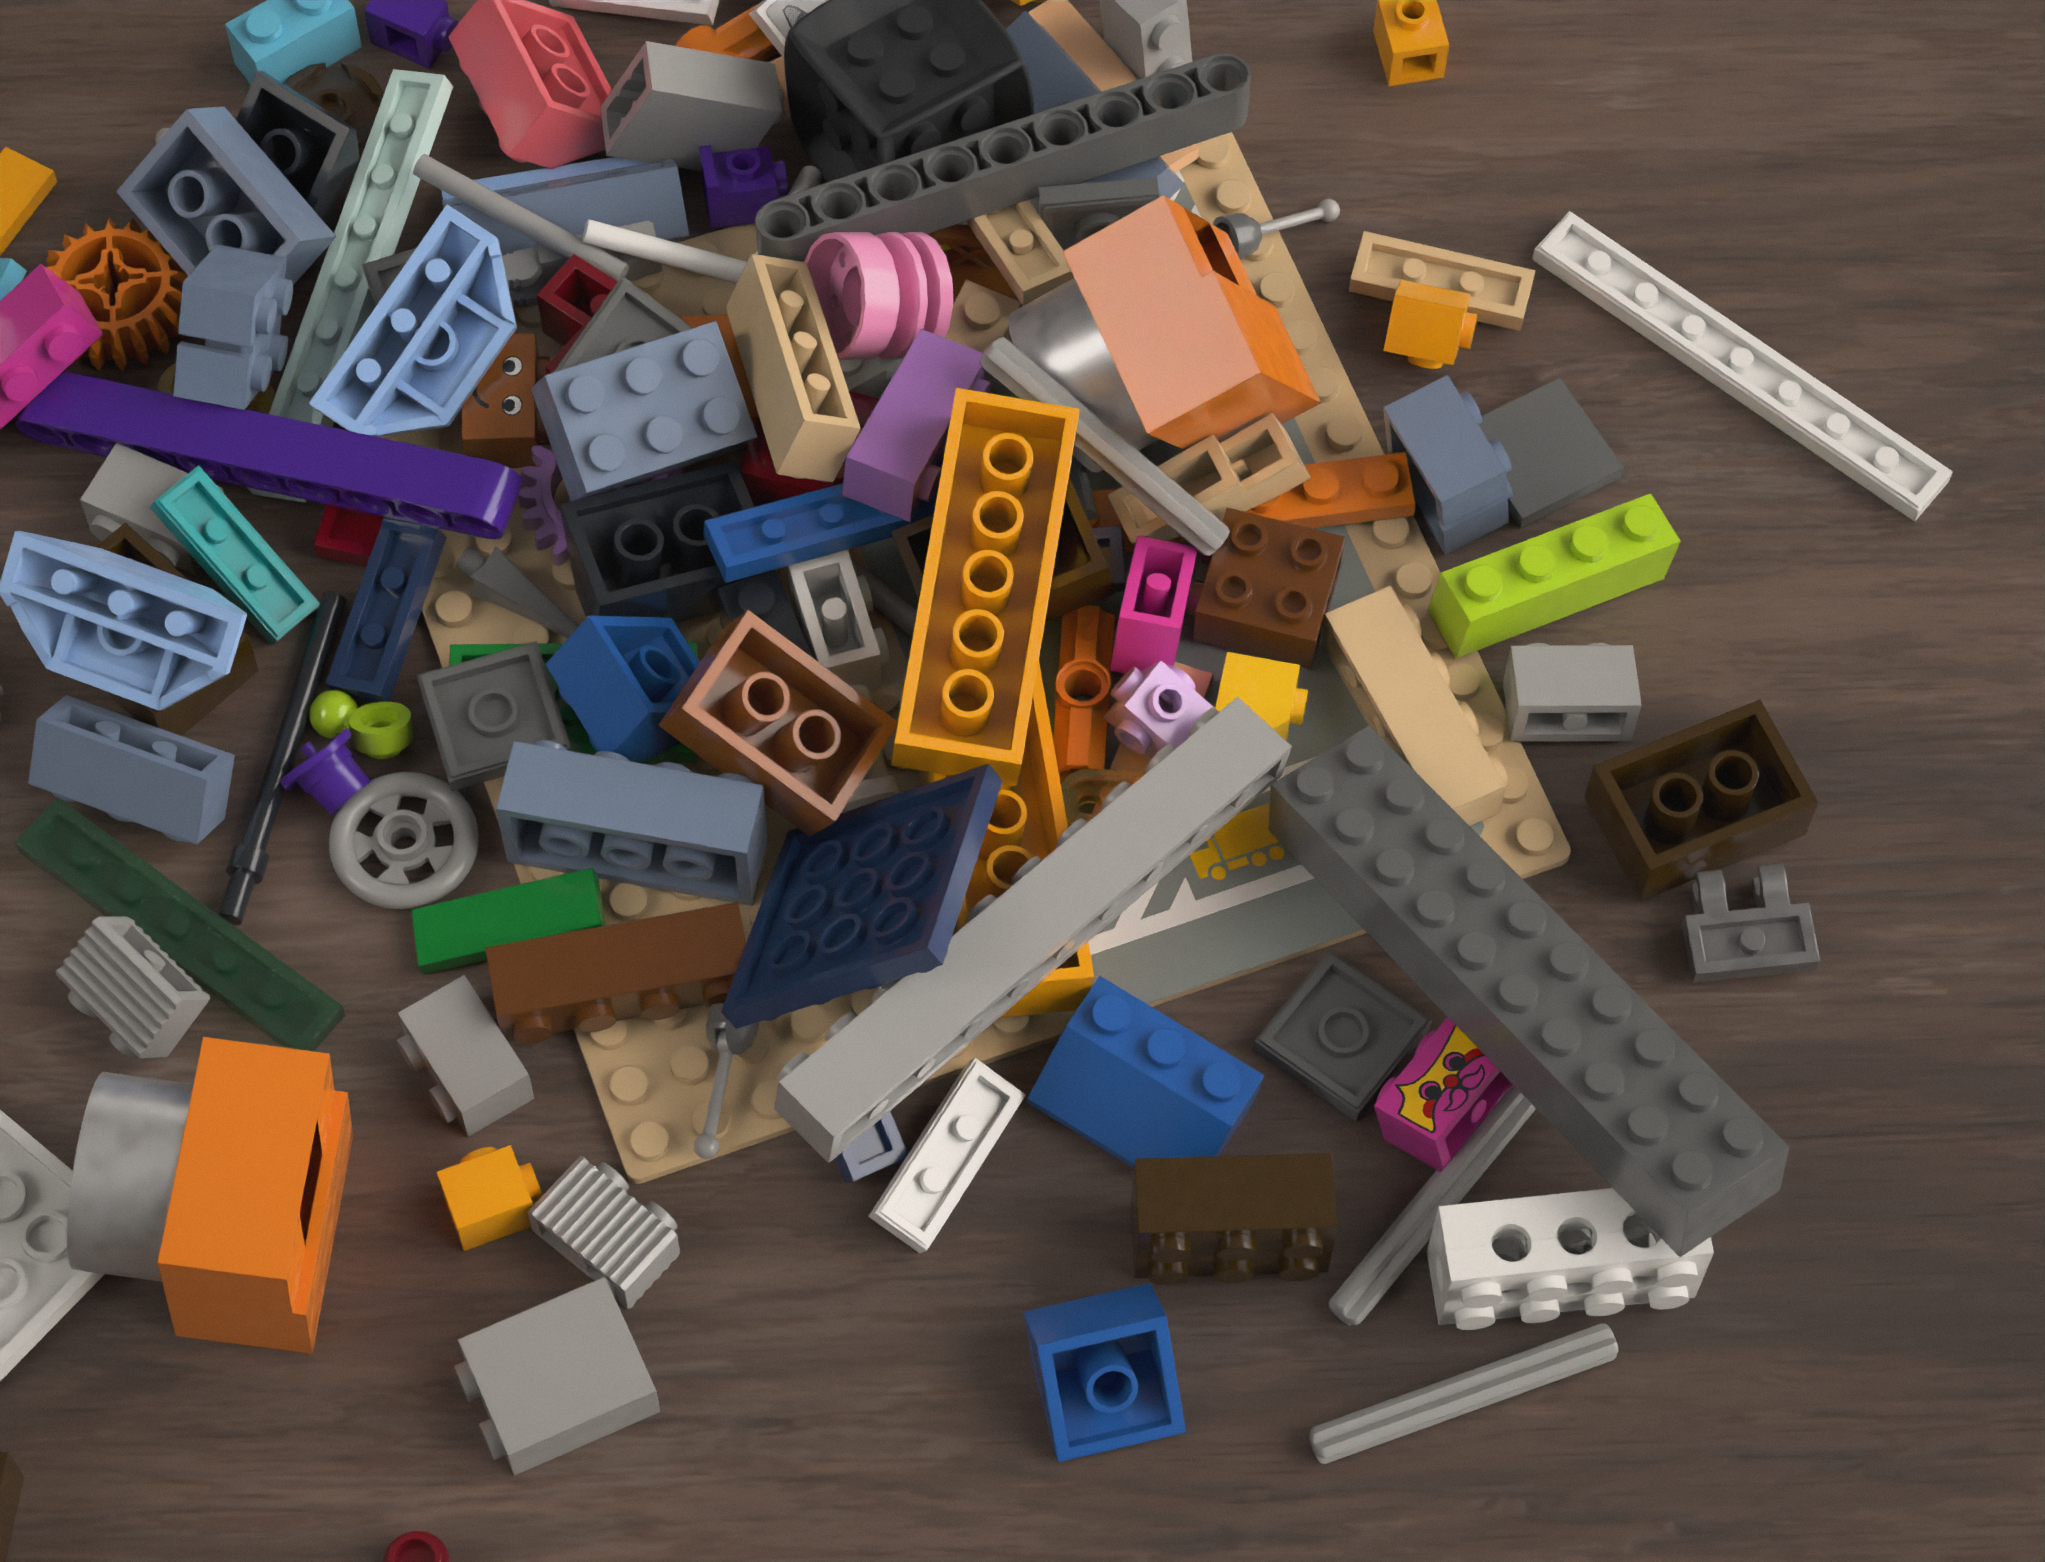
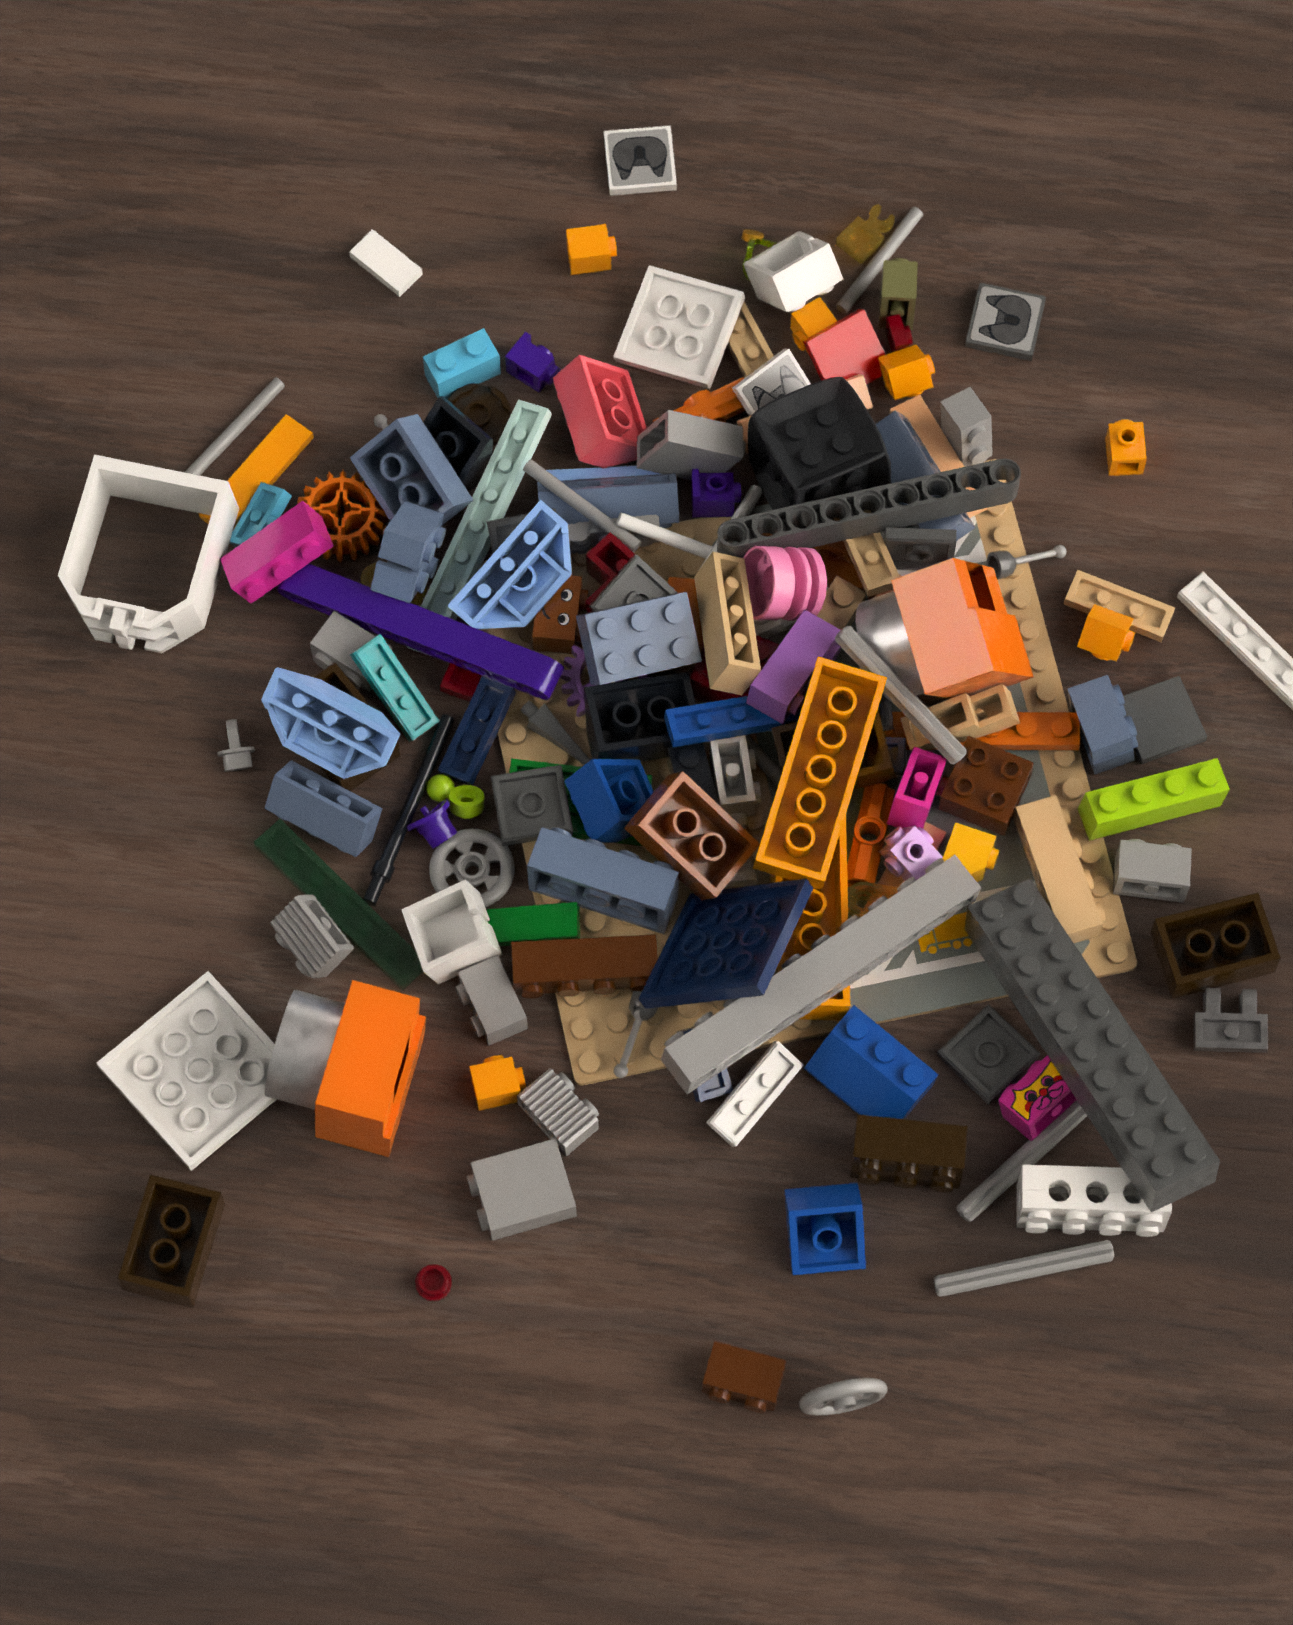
camera: 10 degrees right, 5 degrees up
(377, 945) = (451, 931): none -> white piece

